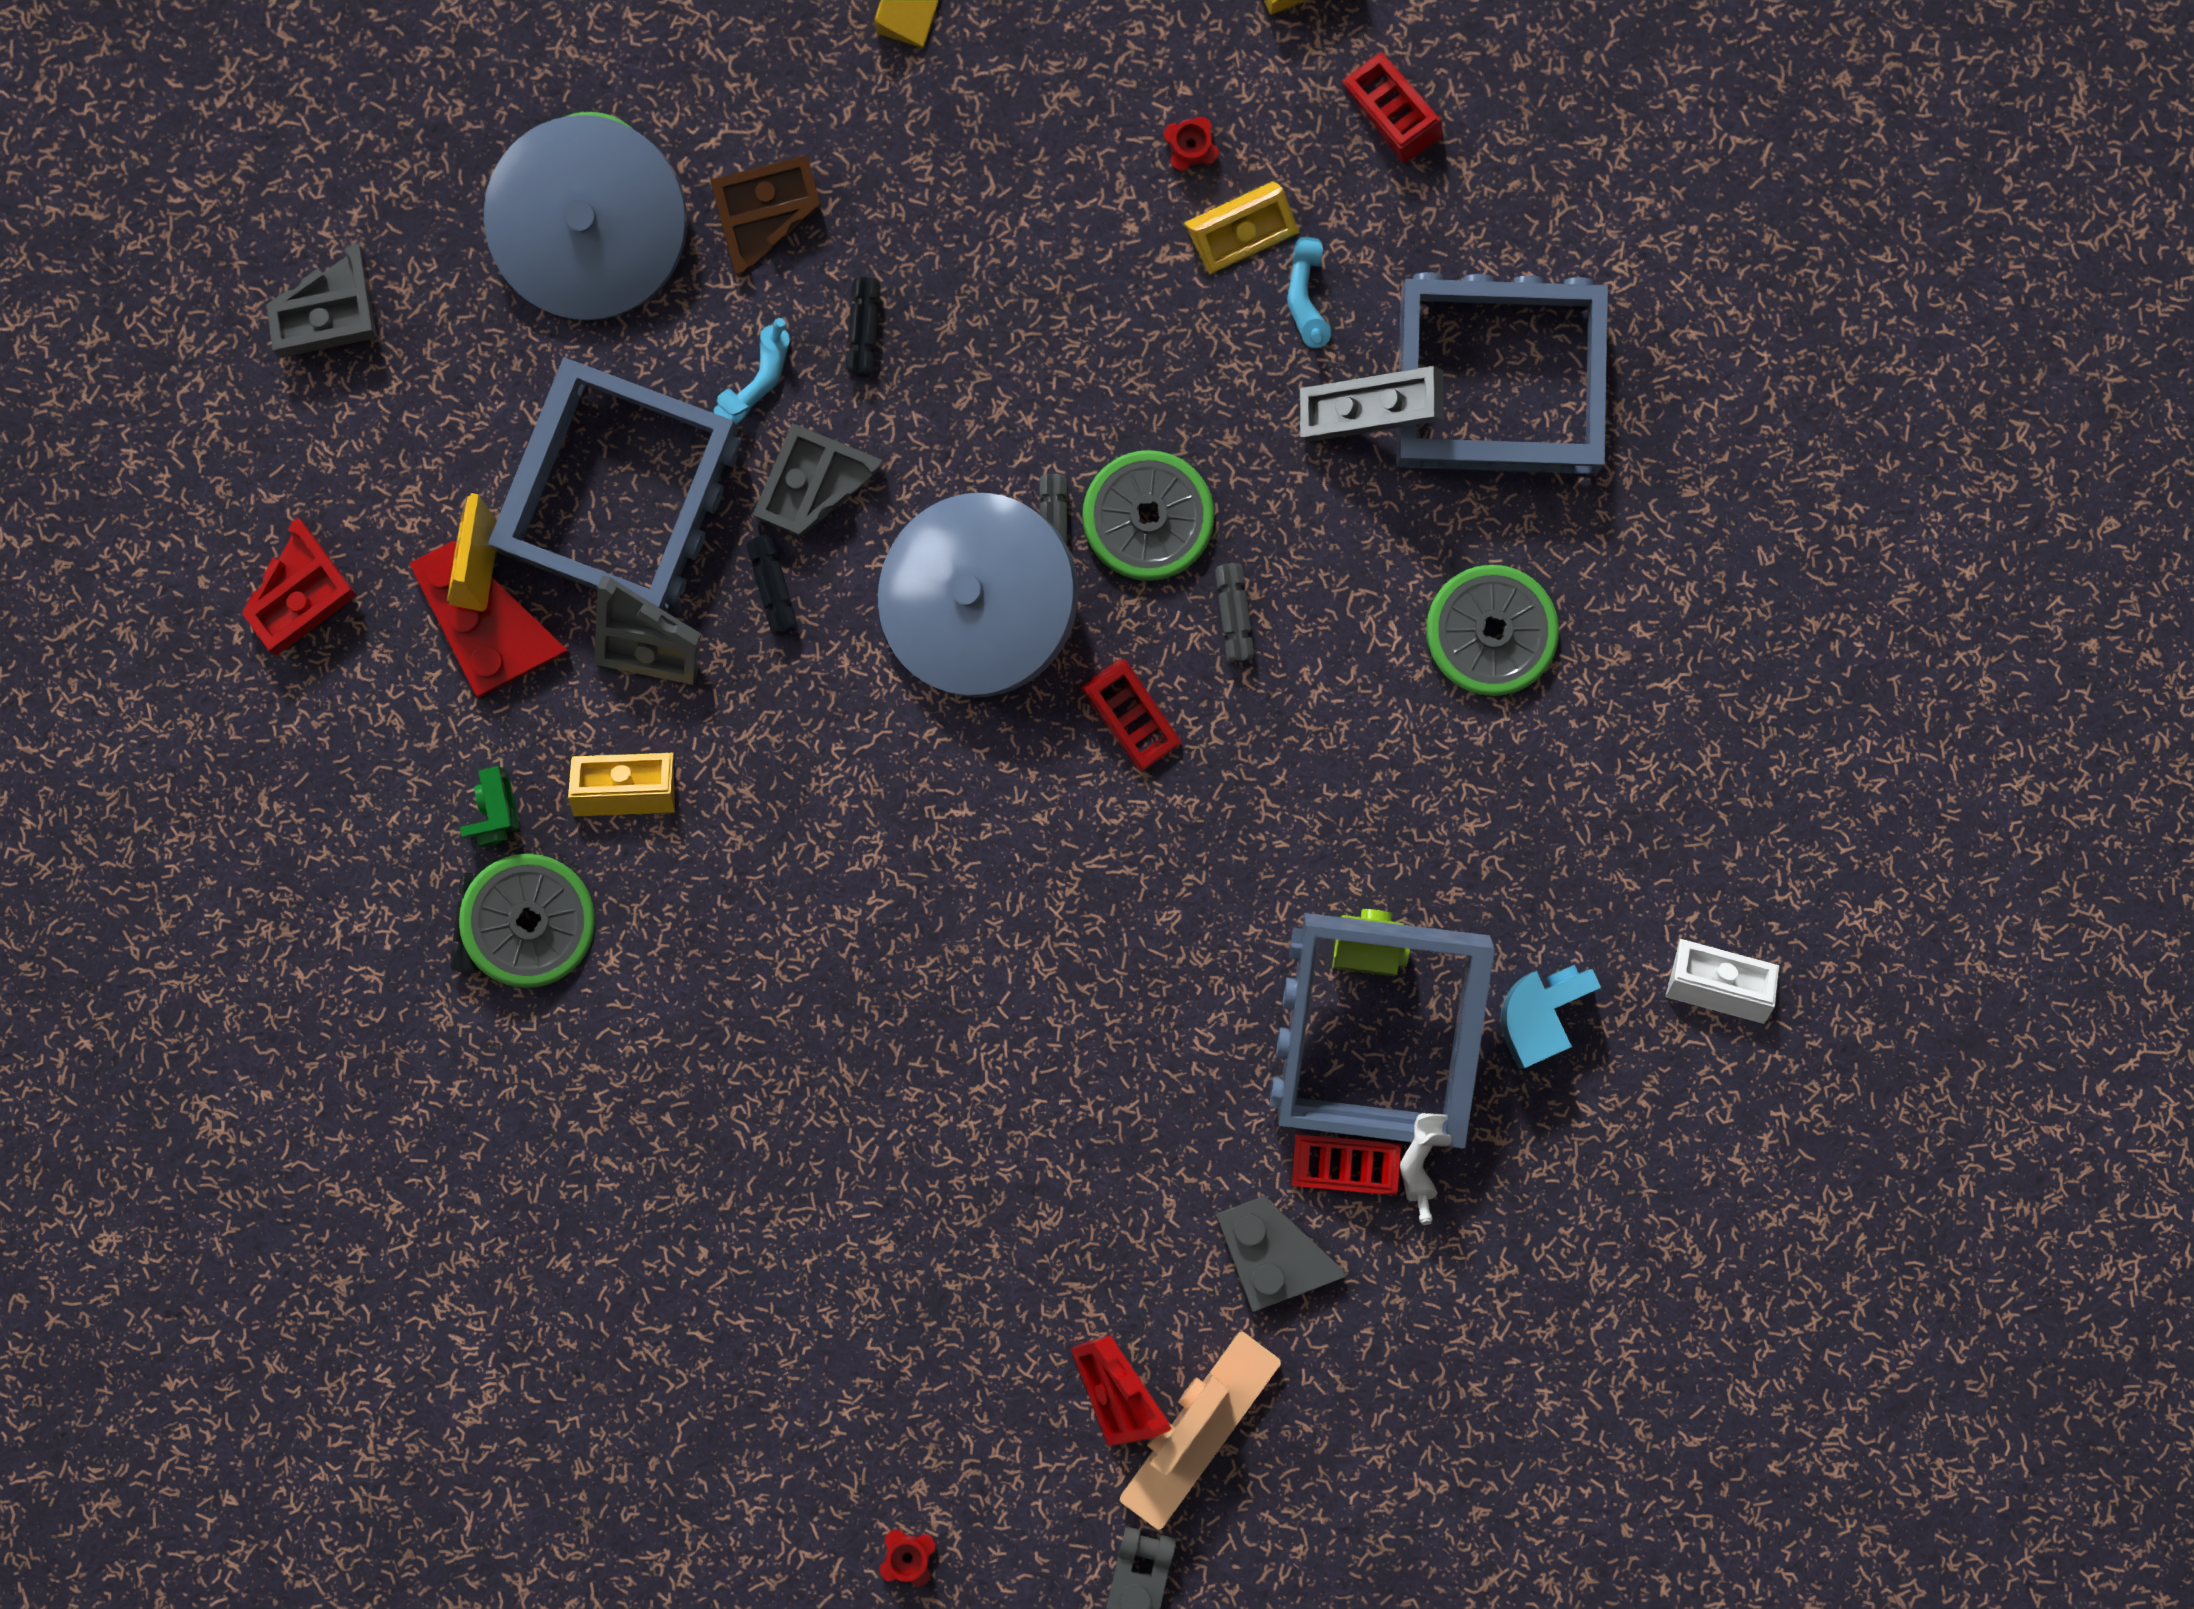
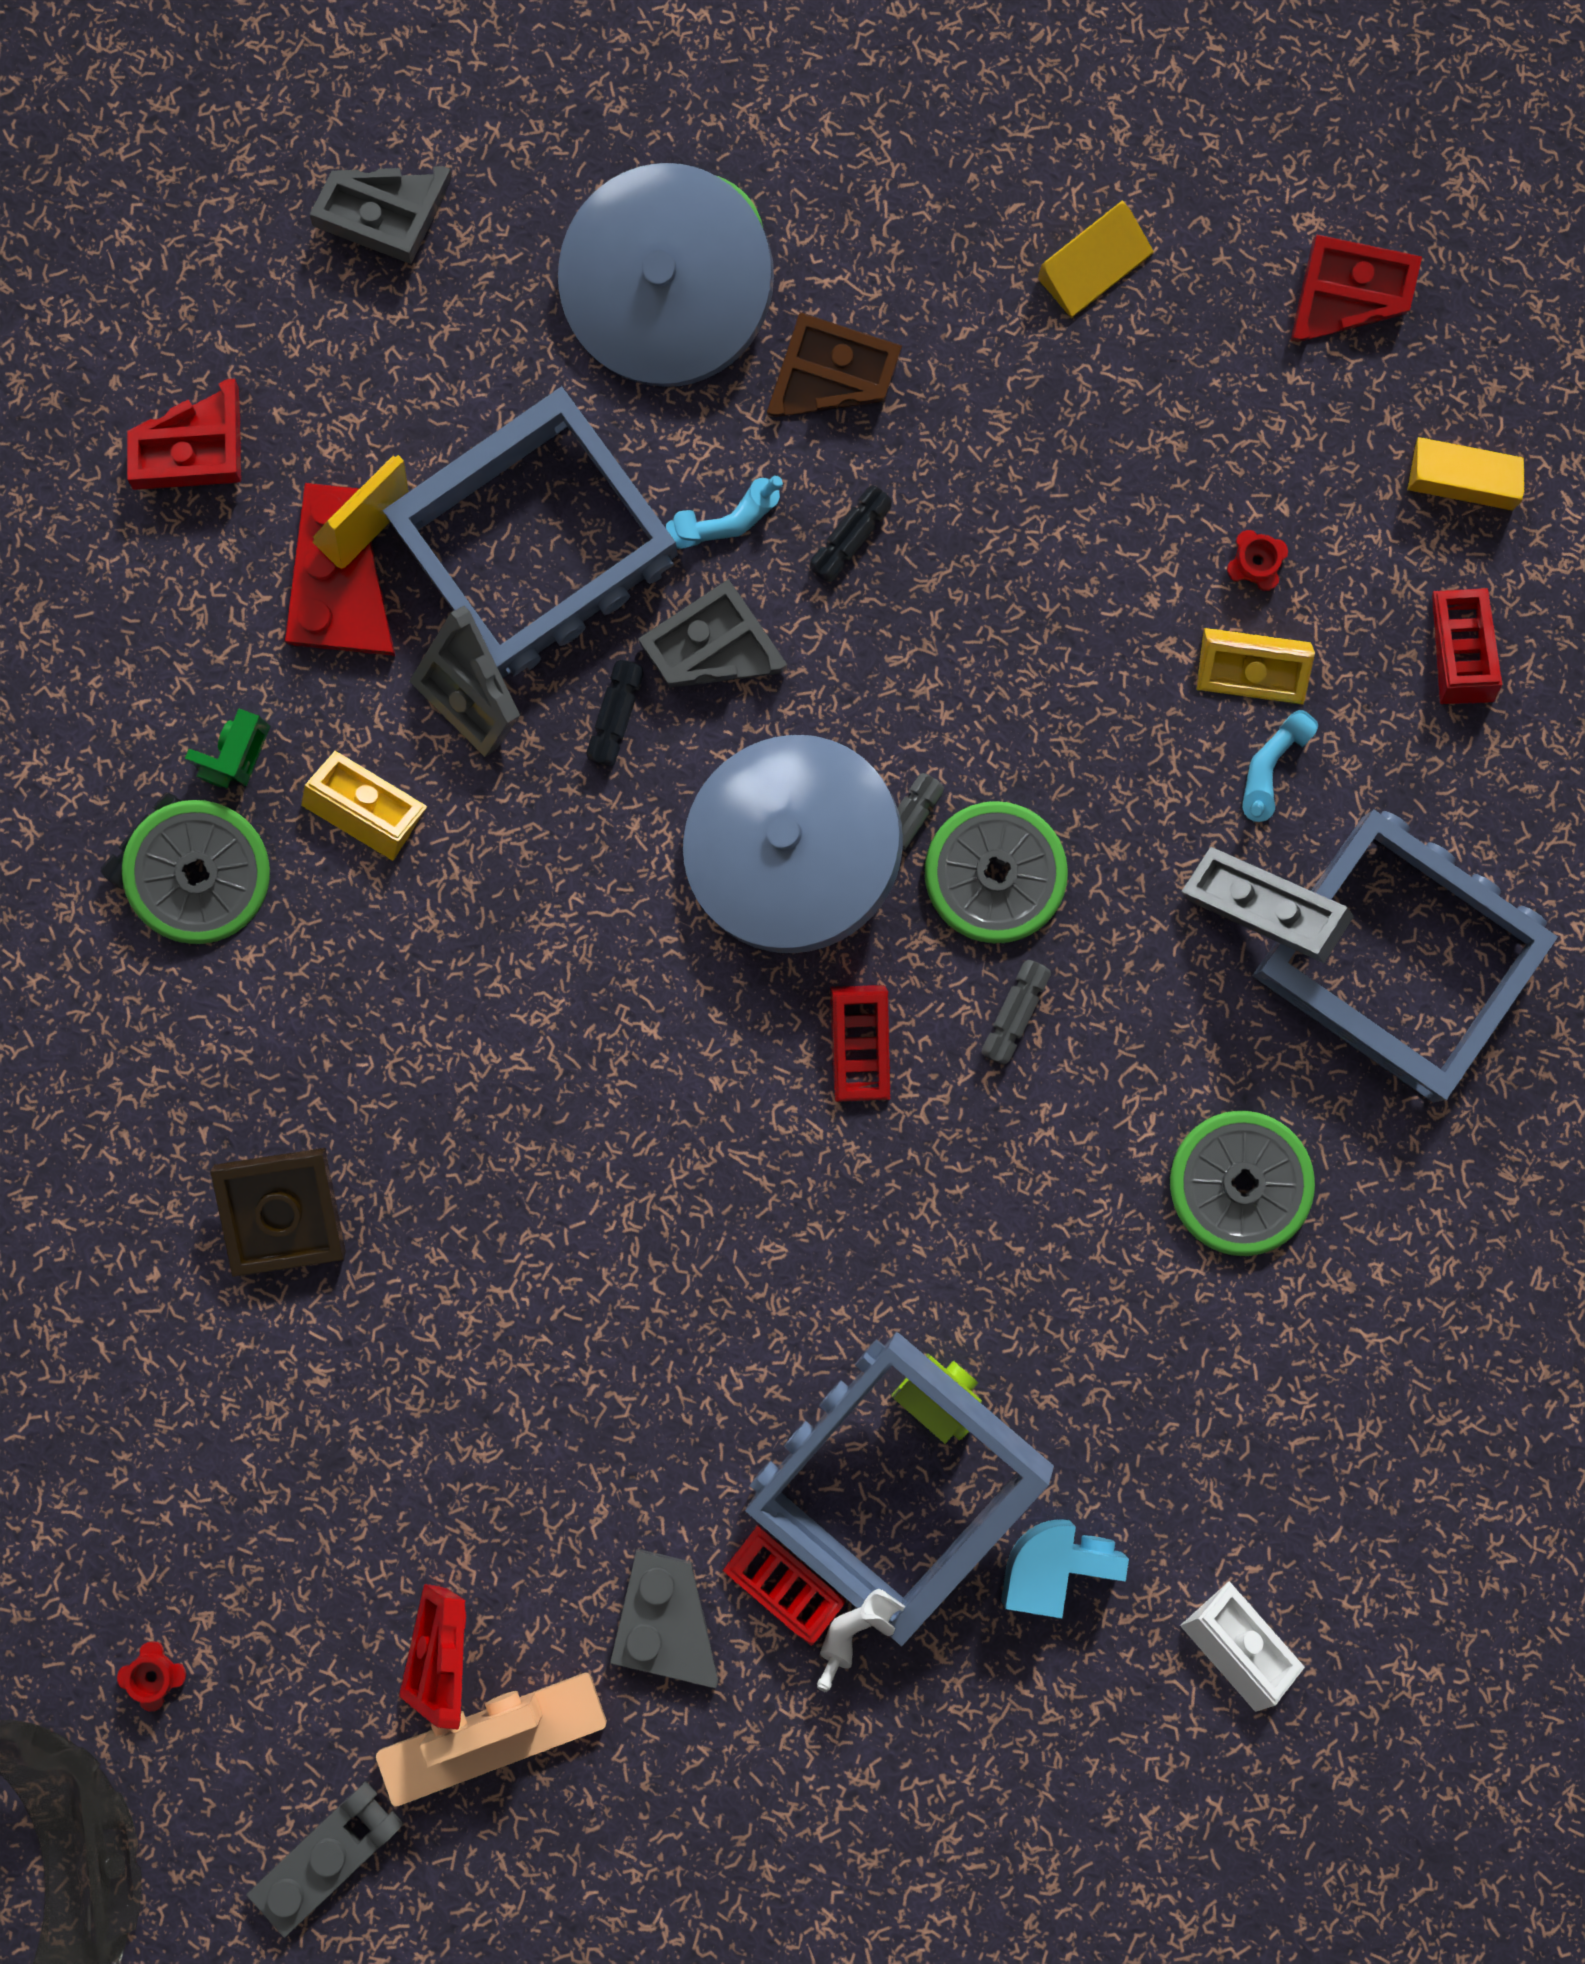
camera: 30 degrees right, 0 degrees up
(768, 1138) = (278, 1212): none -> dark brown hinge

